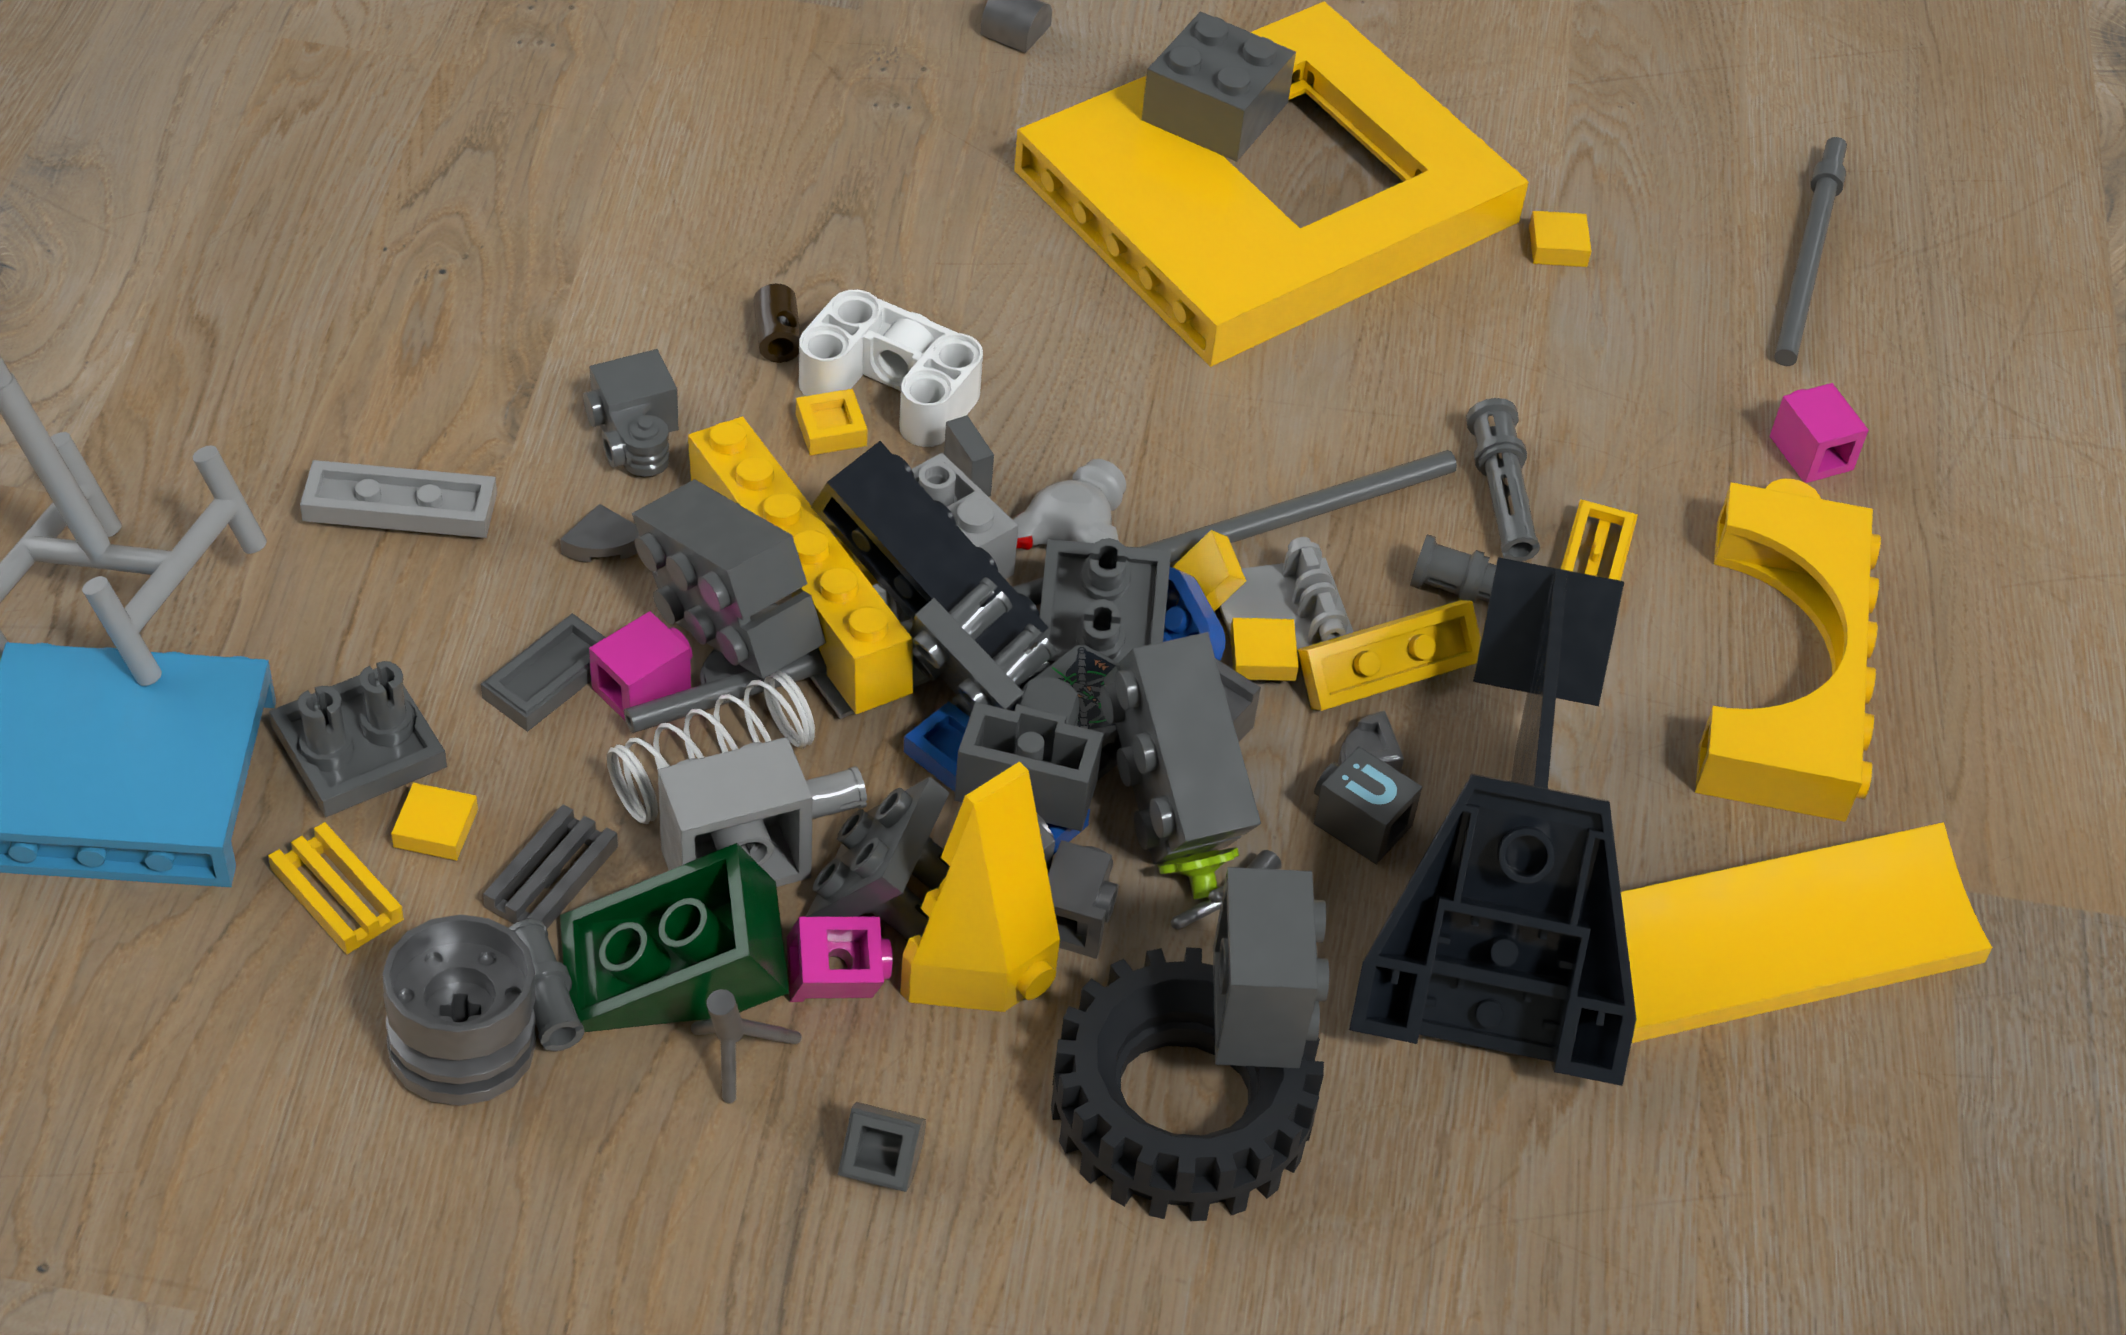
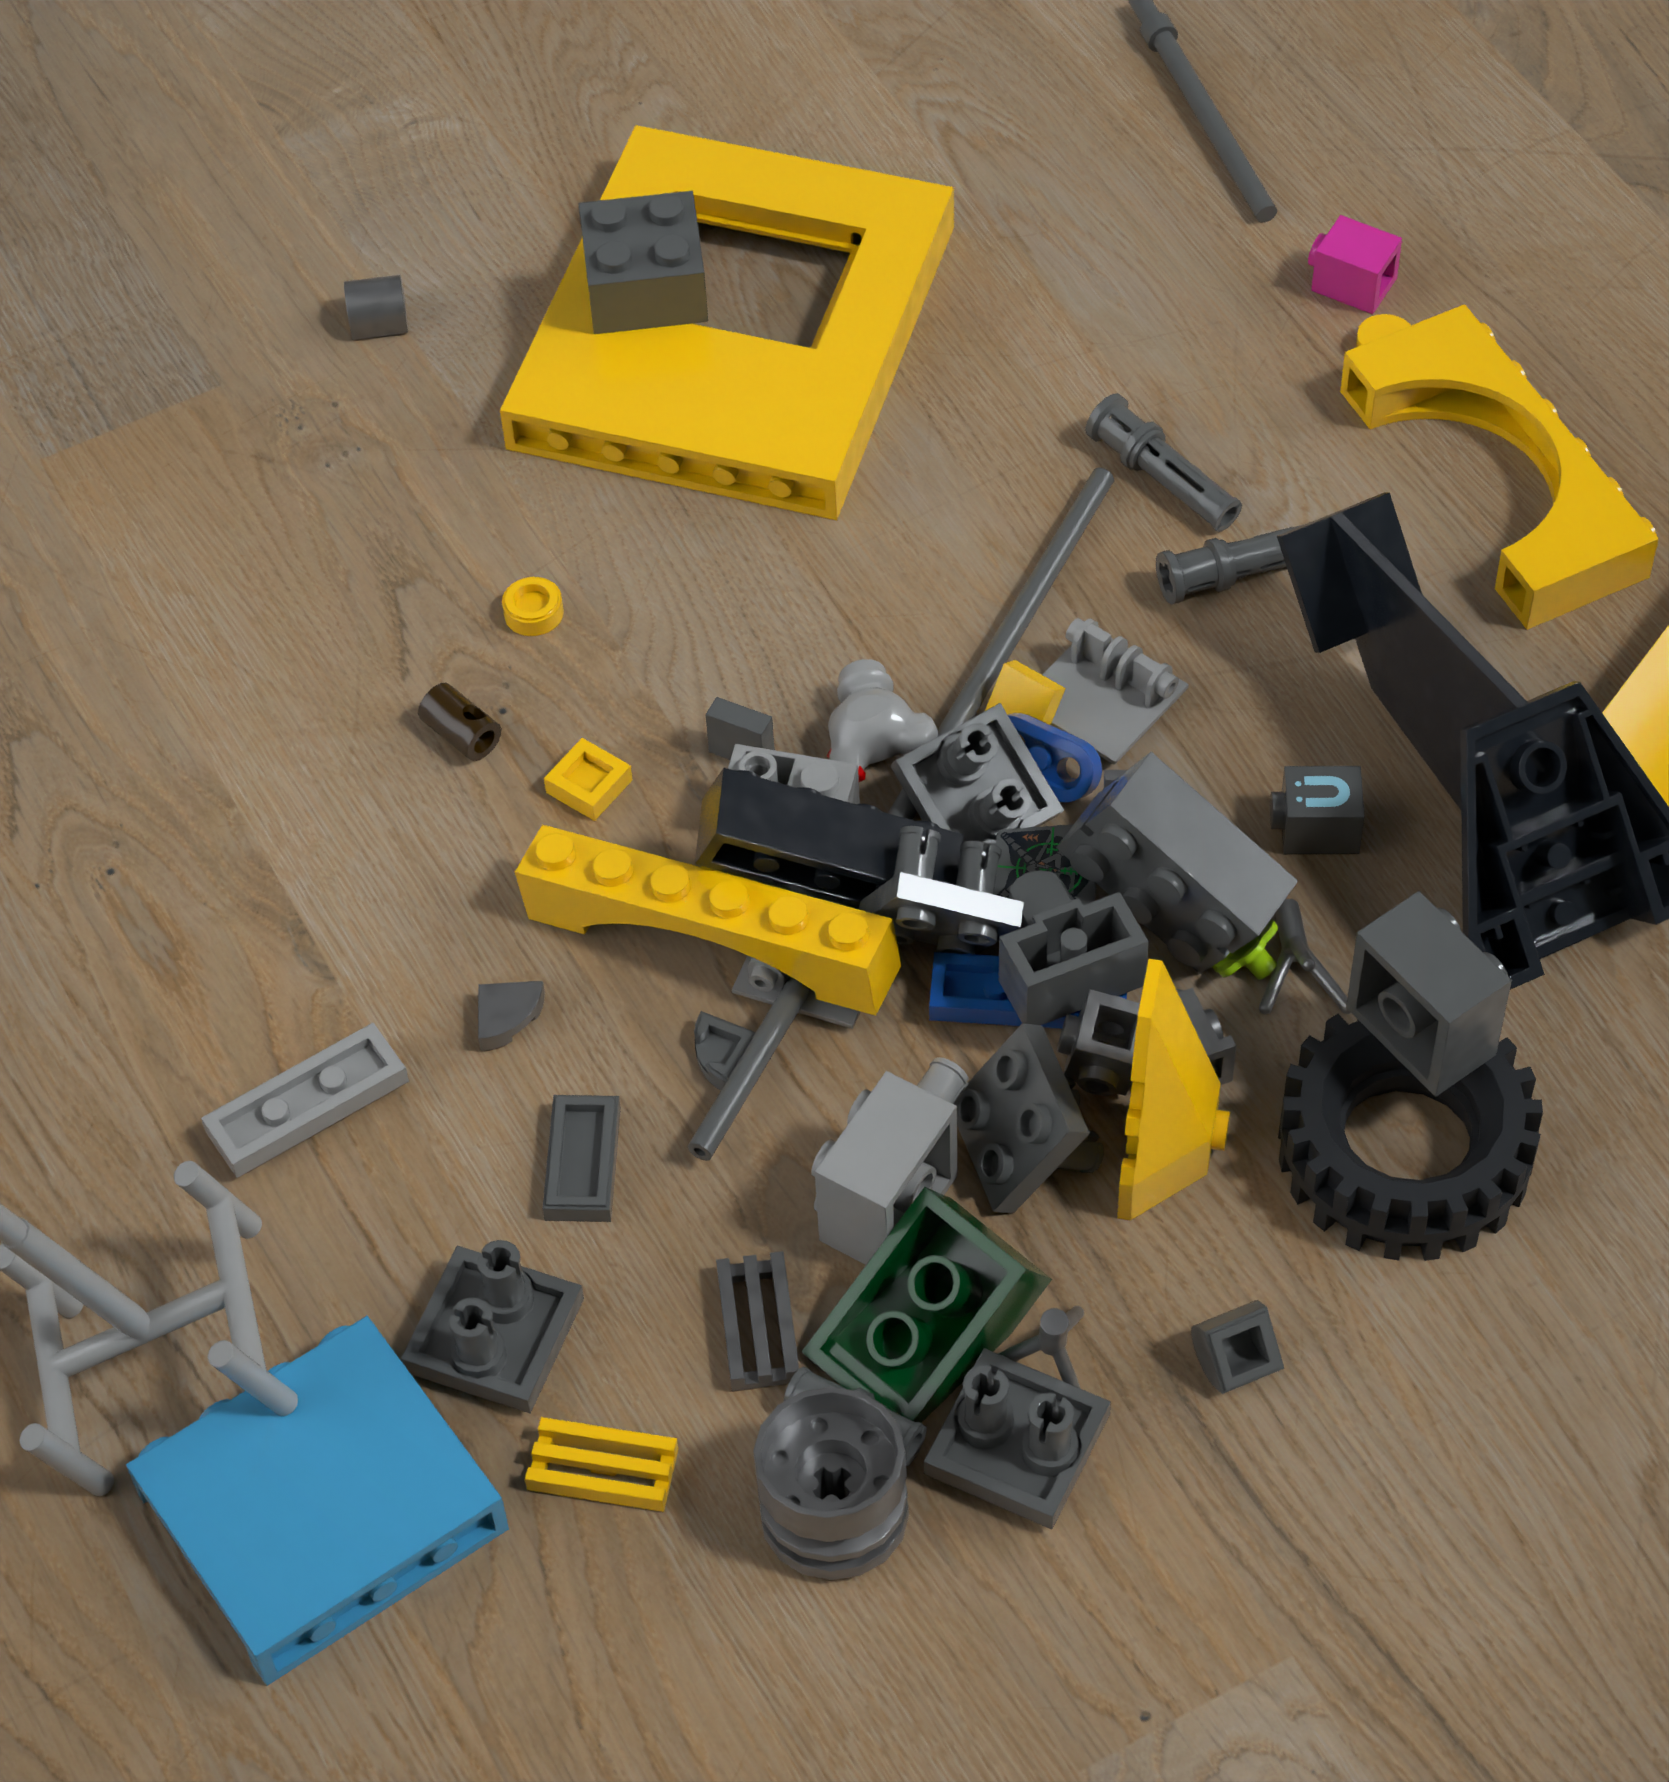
camera: 30 degrees left, 5 degrees up
(434, 821) = (623, 1350): yellow tile -> none
(630, 762) = (749, 1213): white piece -> none
(636, 410) = (421, 880): dark grey brick -> none
(640, 663) = (662, 1100): dark pink brick -> none
(644, 1085) = (1017, 1438): none -> dark grey plate
(722, 575) = (687, 971): dark grey piece -> none
(849, 938) = (1060, 1223): dark pink brick -> none
(899, 348) = (595, 677): white beam -> none
(917, 283) = (532, 606): none -> yellow tile
(1264, 648) = (1125, 734): yellow tile -> none
(1377, 738) = (1266, 758): flat silver tile -> none
(1390, 655) = (1222, 673): yellow plate -> none
(1560, 238) = (1004, 221): yellow tile -> none
(1606, 516) = (1279, 517): yellow tile -> none

